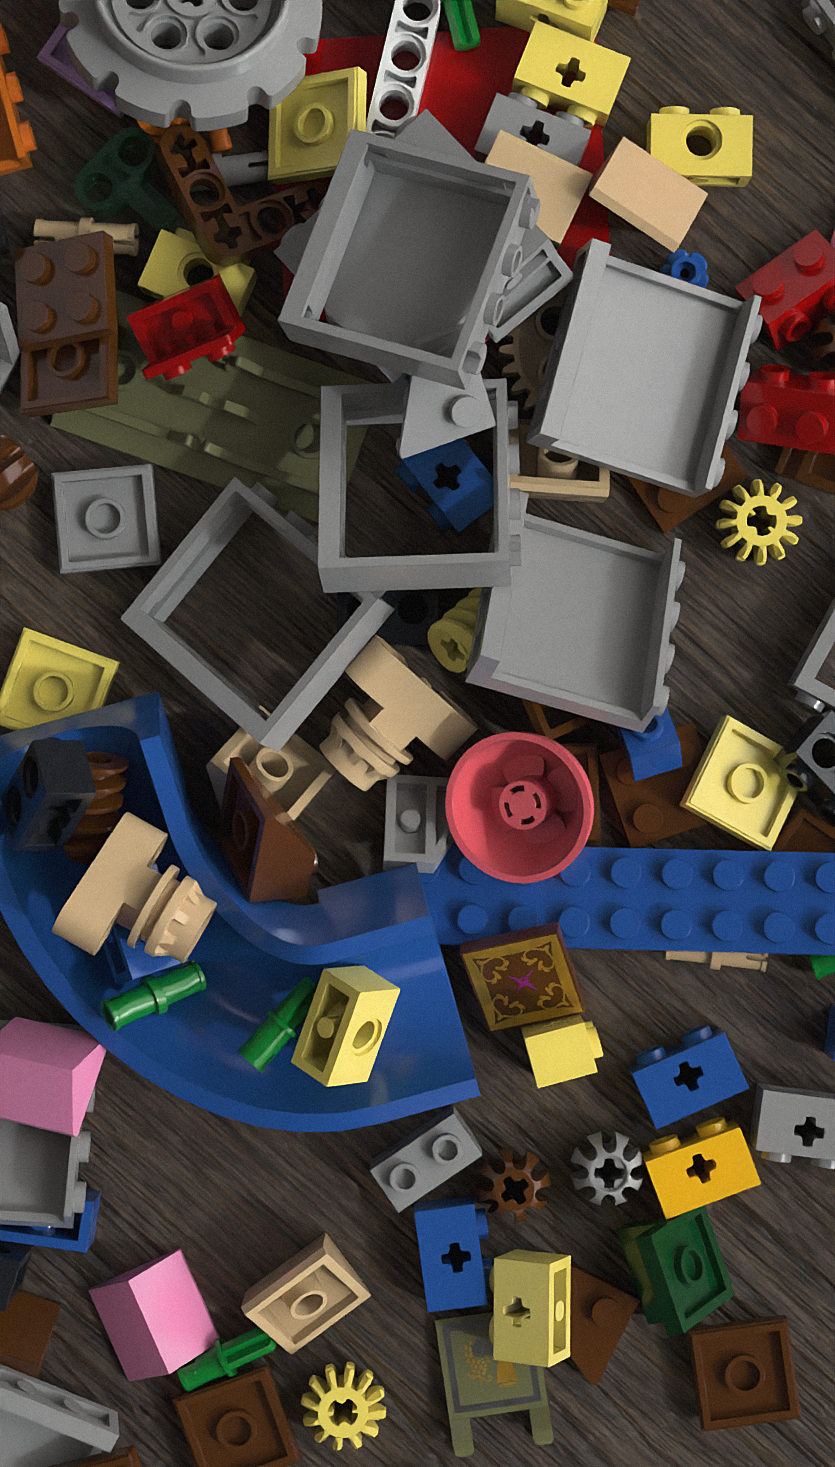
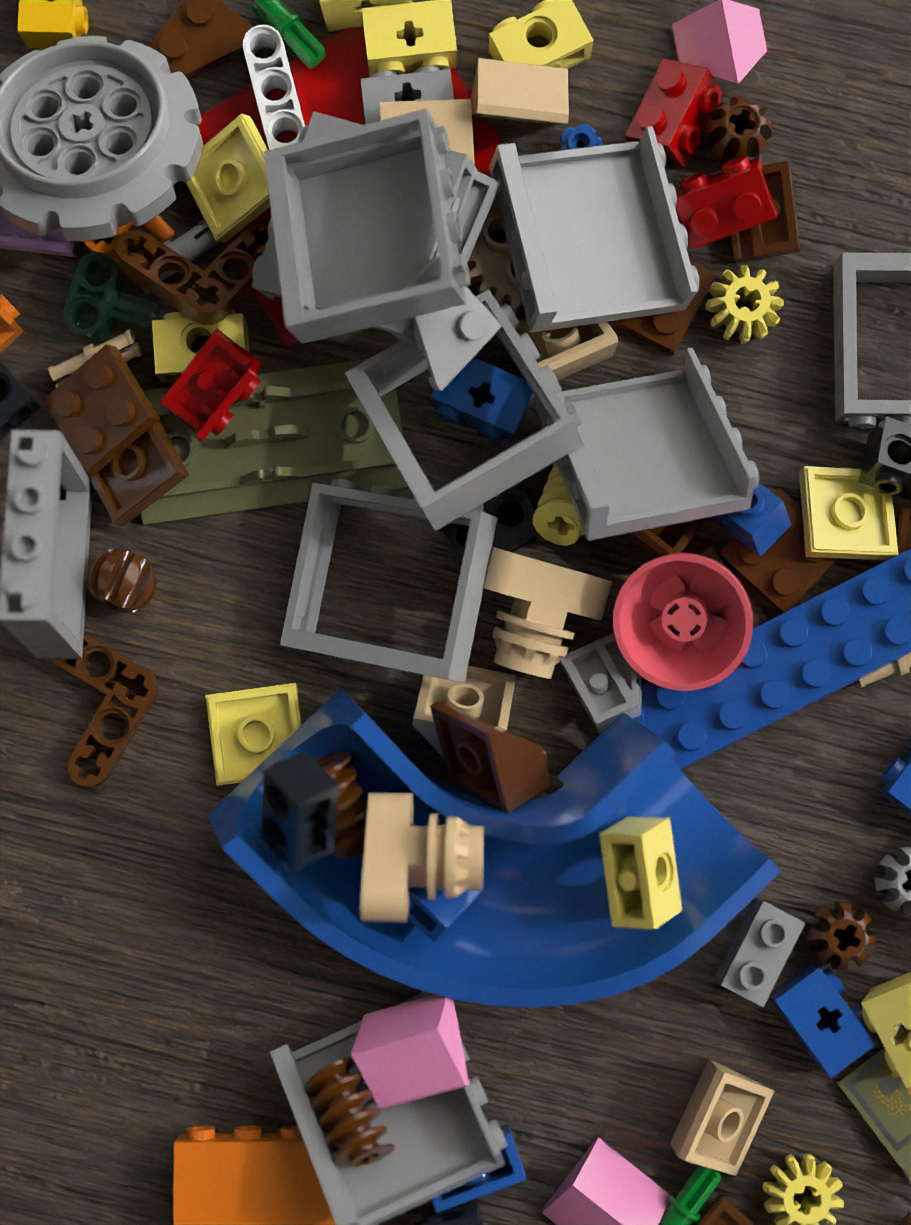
camera: 30 degrees left, 5 degrees down
(106, 519) = (226, 574): light grey plate -> none
(153, 995) = (469, 934): green pin -> none
(279, 1025) = (587, 901): green axle -> none
(523, 977) = (757, 761): tile -> none
(561, 1049) = (820, 802): light yellow brick -> none

